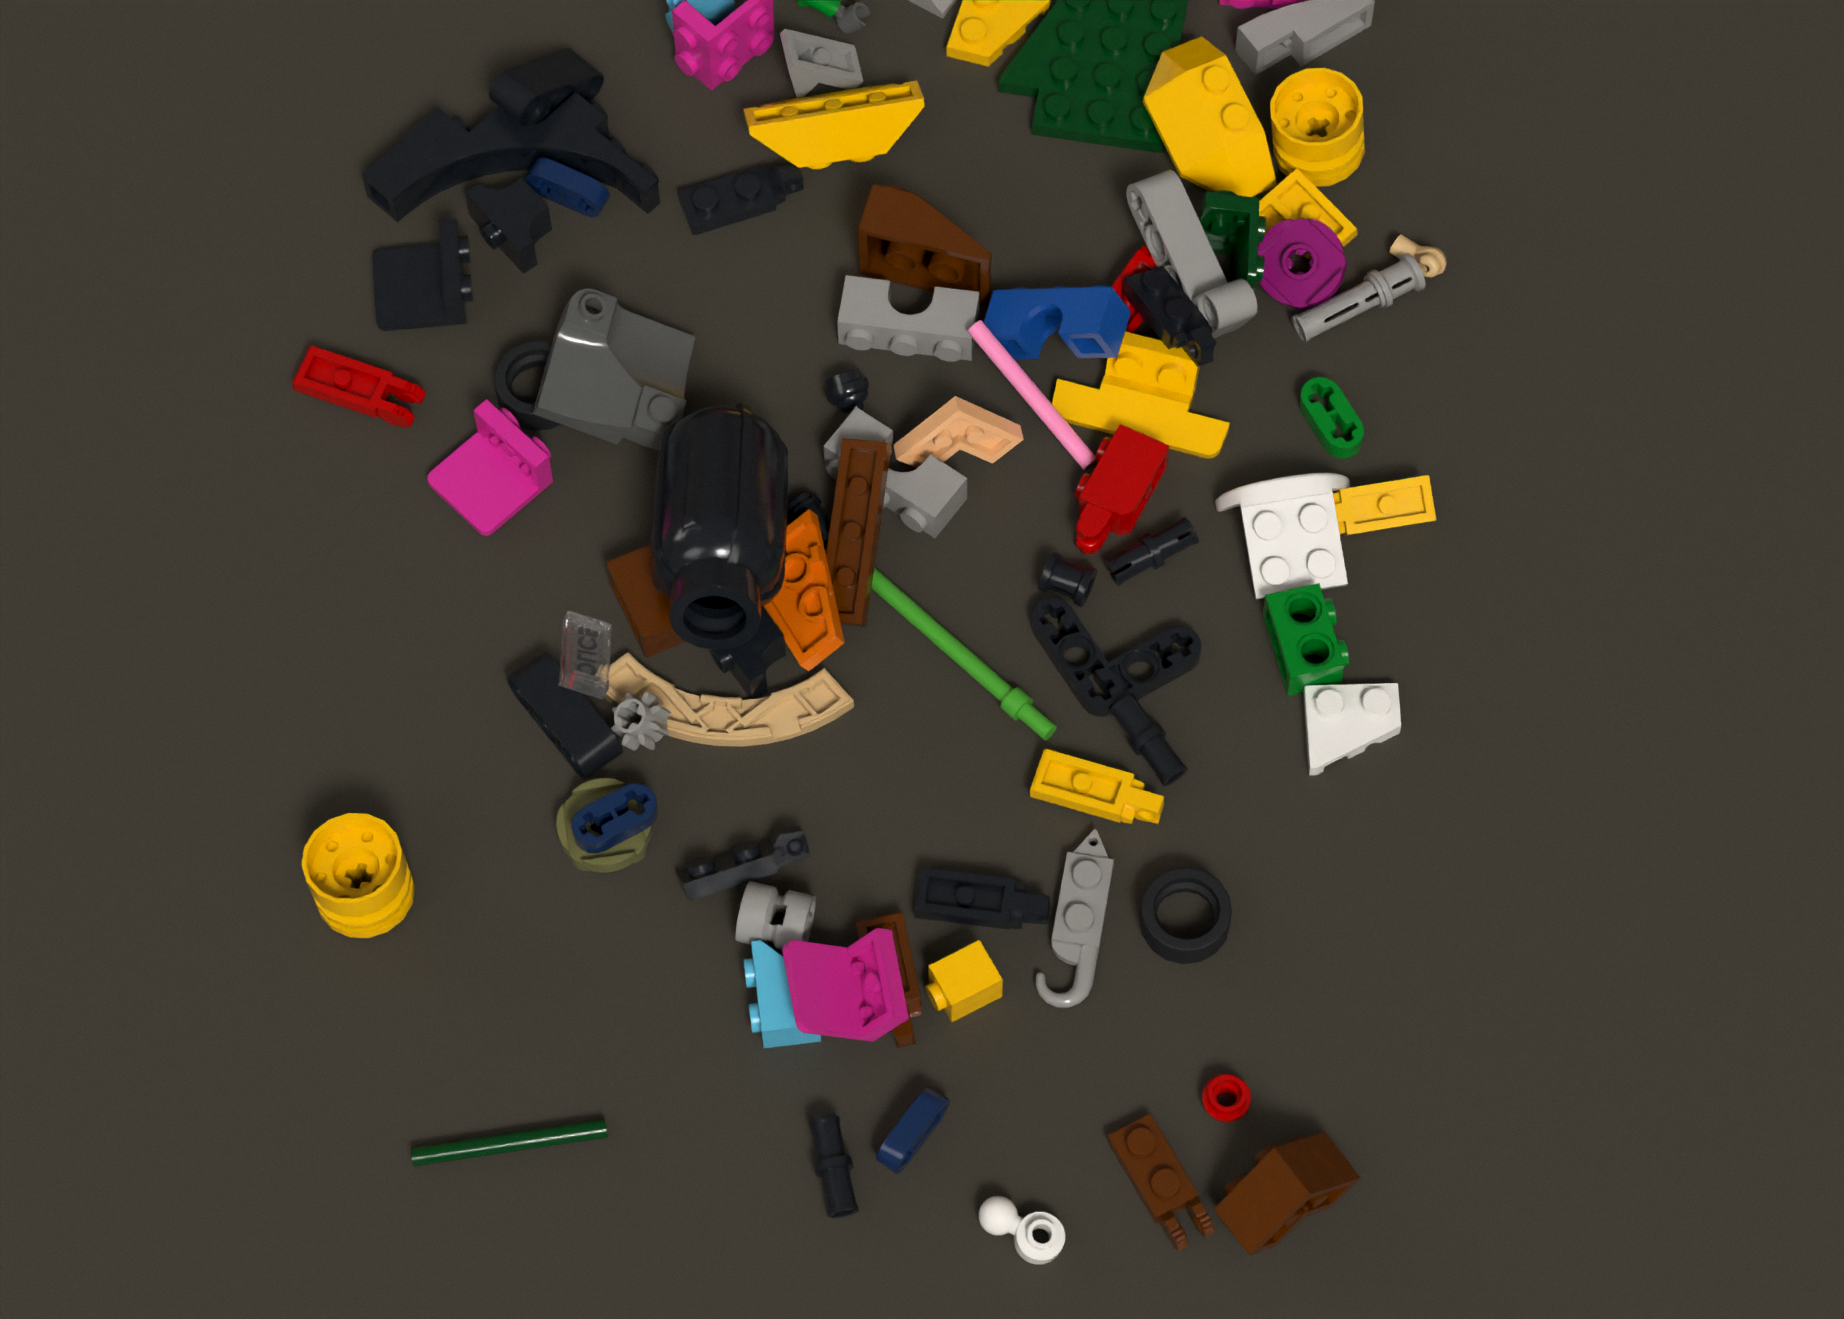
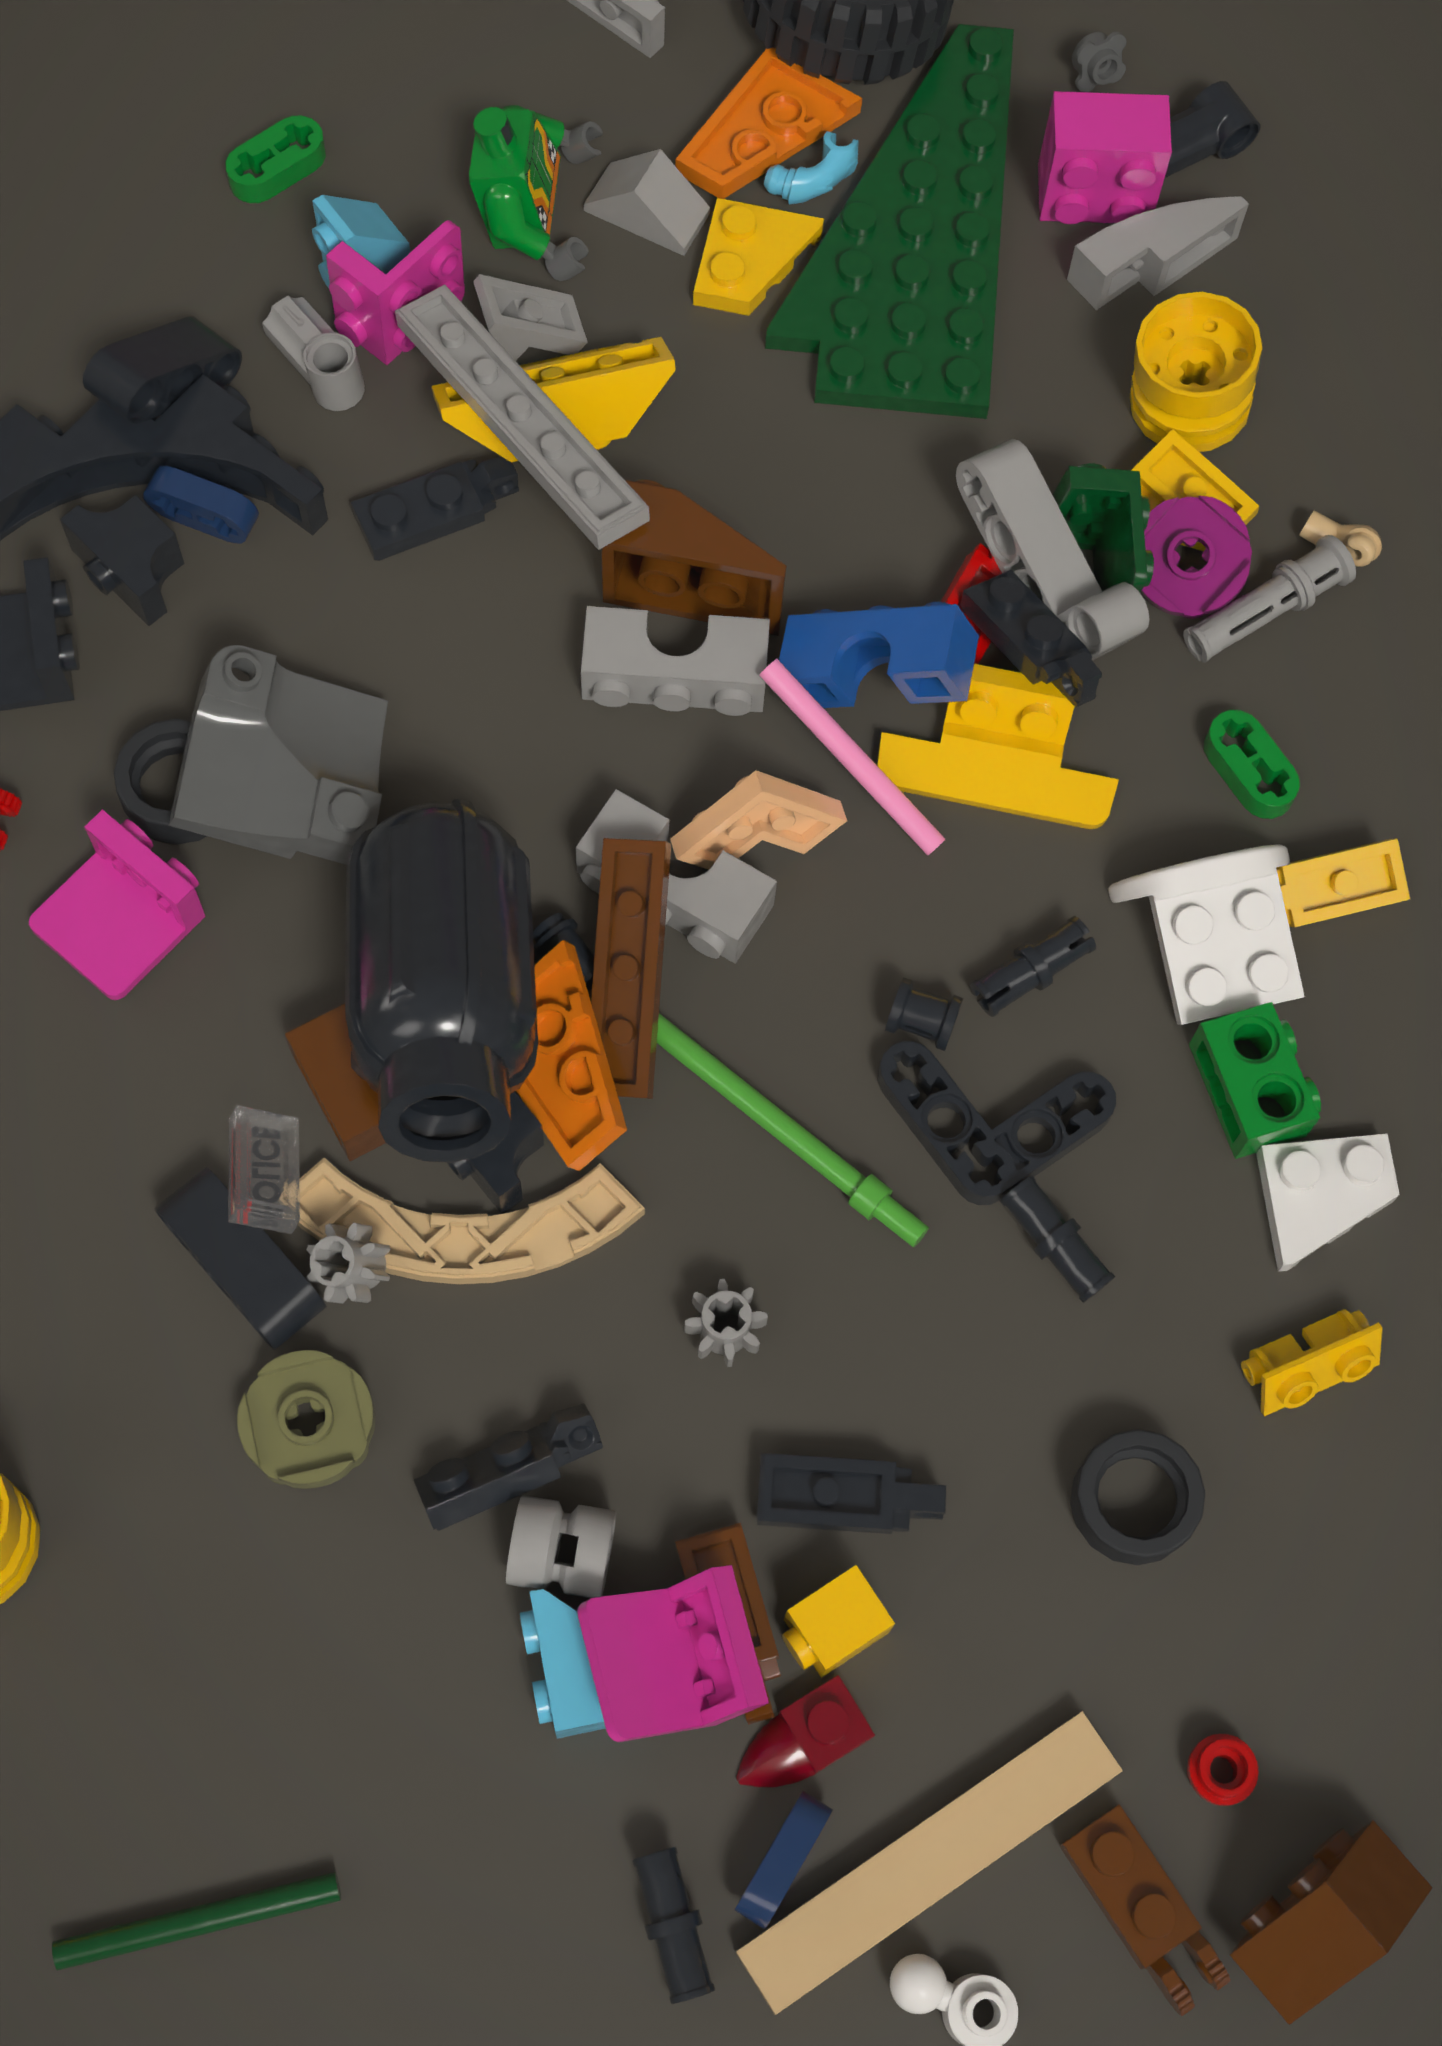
camera: 10 degrees left, 5 degrees up
(615, 820) = (311, 1400): dark blue beam -> none
(659, 79) = (317, 353): none -> light grey piece
(807, 134) = (523, 417): none -> light grey tile
(847, 390) = (601, 765): black plate -> none
(904, 791) = (722, 1305): none -> light grey gear
(937, 1058) = (805, 1738): none -> dark red plate
(1014, 1142) = (927, 1863): none -> tan tile
(1080, 919) = (988, 1511): light grey plate -> none
(1094, 789) = (990, 1317): yellow hinge -> none
(1118, 487) = (981, 878): red hinge -> none
(1209, 121) = (1050, 370): yellow wedge -> none
(1339, 832) = (1339, 1351): none -> yellow hinge

